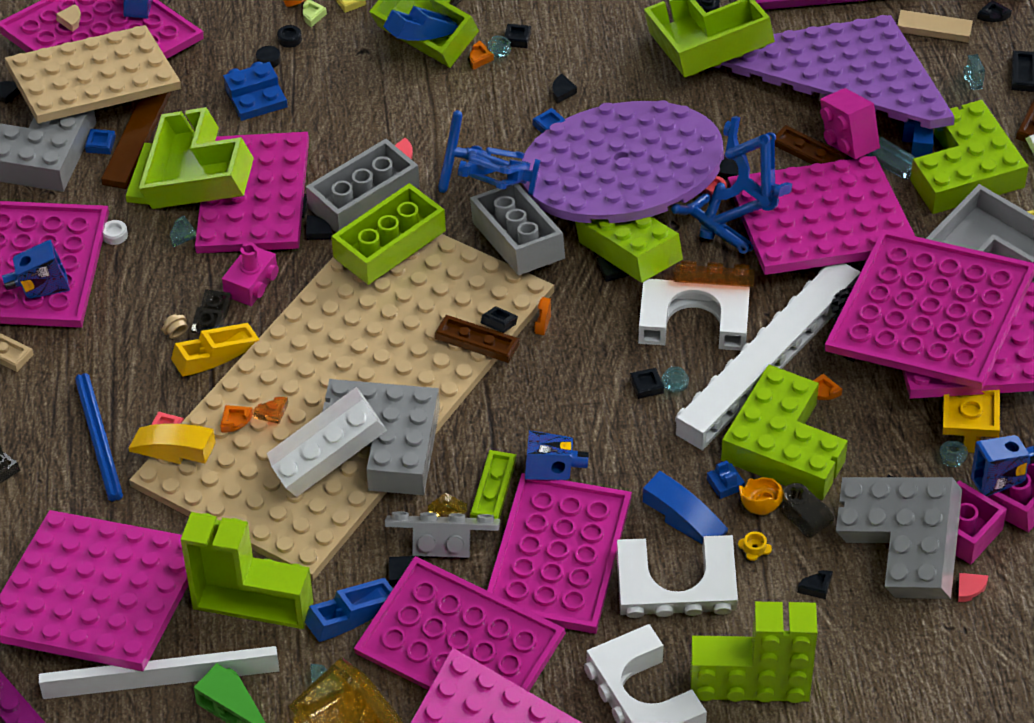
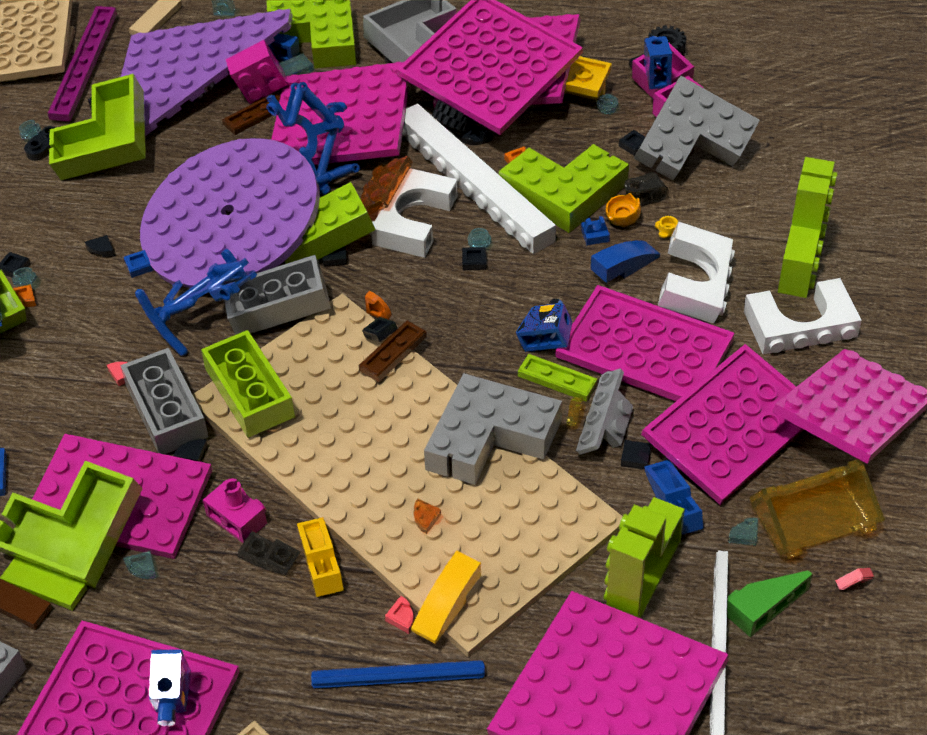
camera: 75 degrees left, 0 degrees up
(115, 232) = (115, 620): white tile -> none
(175, 326) = (277, 584): tan plate -> none
(235, 417) = (424, 546): orange tile -> none
(325, 442) = (503, 462): white slope -> none
(816, 585) = (713, 202): black tile -> none

